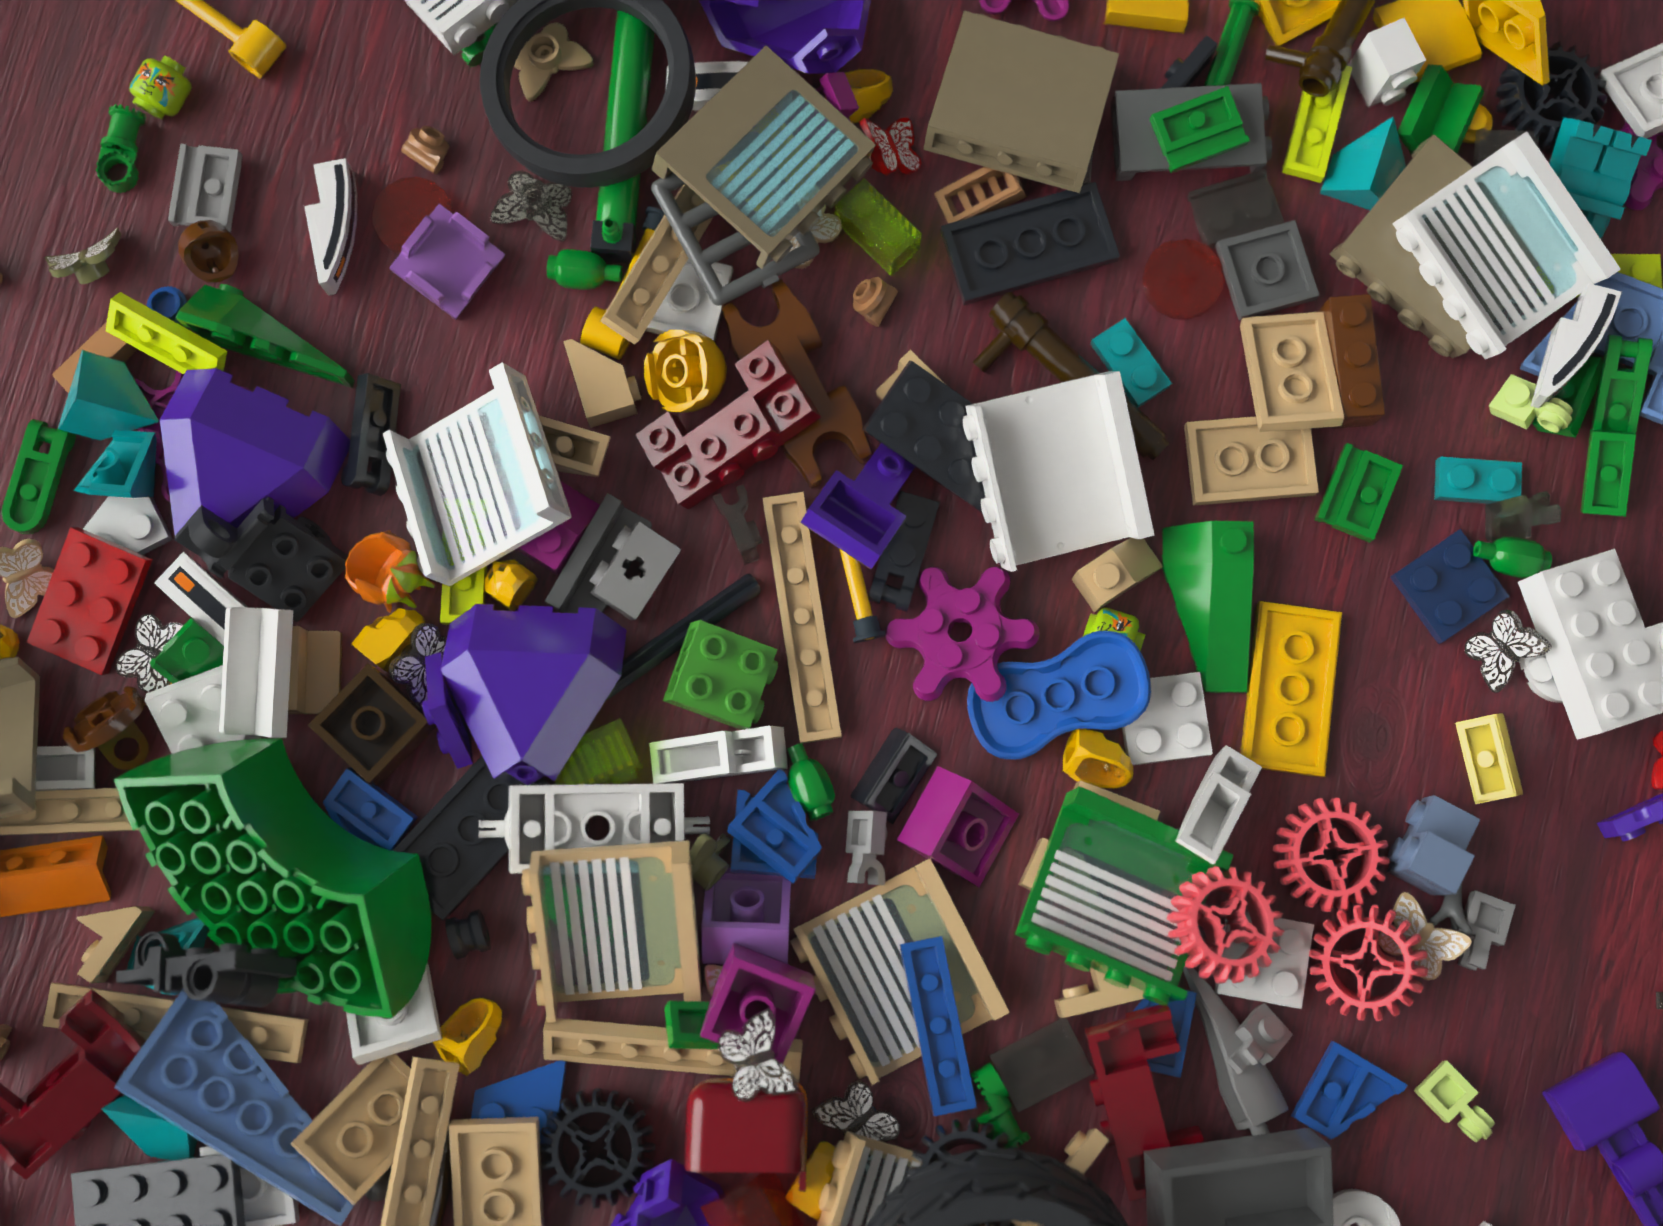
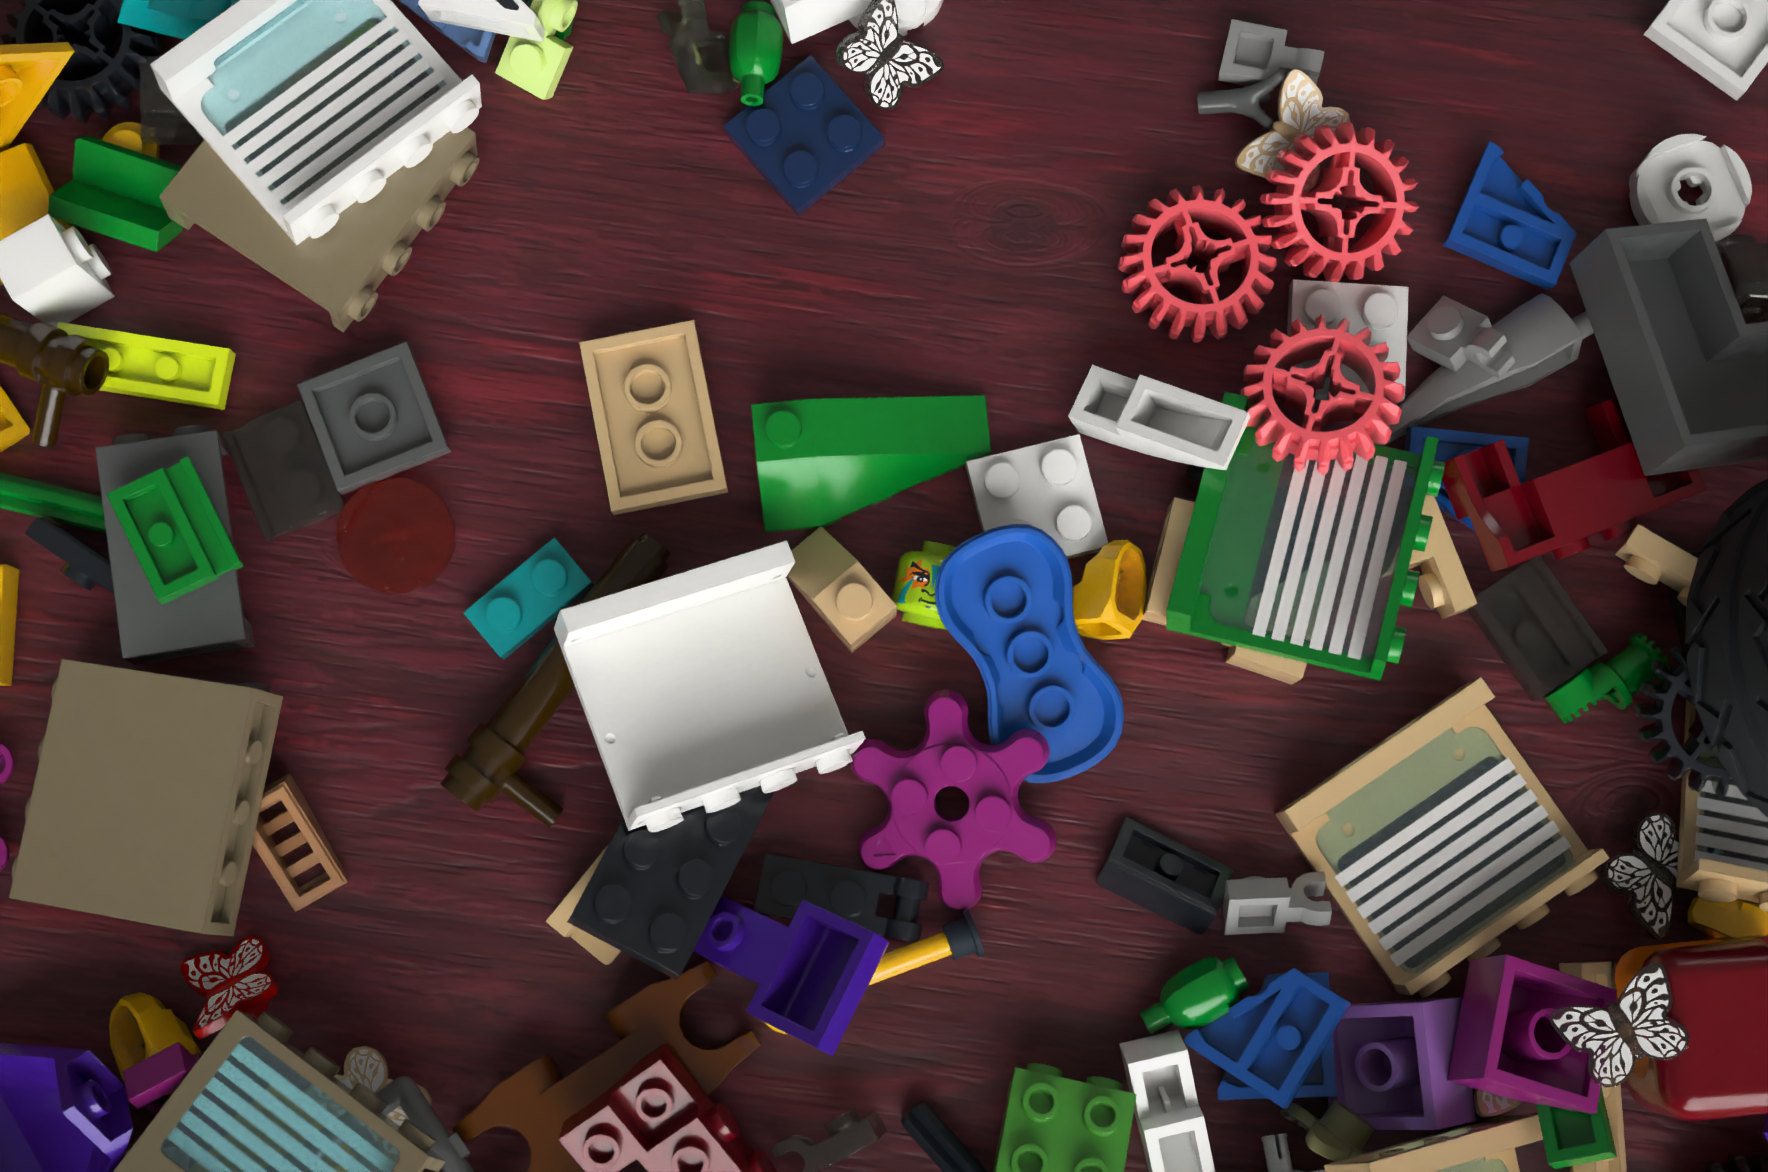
camera: 95 degrees left, 0 degrees up
(802, 618) = (957, 1036): tan plate -> none
(873, 299) = (468, 984): medium nougat plate -> none
(878, 227) = (357, 991): clear neon green brick -> none
(937, 1026) = (1509, 775): blue plate -> none
(958, 826) = (1229, 777): magenta slope -> none
(1029, 243) = (363, 763): black plate -> none
(1291, 372) = (524, 370): tan plate -> none
(1291, 688) = (972, 336): yellow tile -> none
(1355, 358) = (499, 289): reddish brown brick -> none
(1358, 492) = (686, 265): green plate -> none
(1365, 167) = (209, 290): teal slope -> none
(1434, 847) = (1171, 128): sand blue brick -> none
(1448, 1095) = (1493, 87): yellowish green plate -> none
(1476, 480) = (651, 108): teal plate -> none
(1489, 758) = (1035, 67): light yellow slope -> none

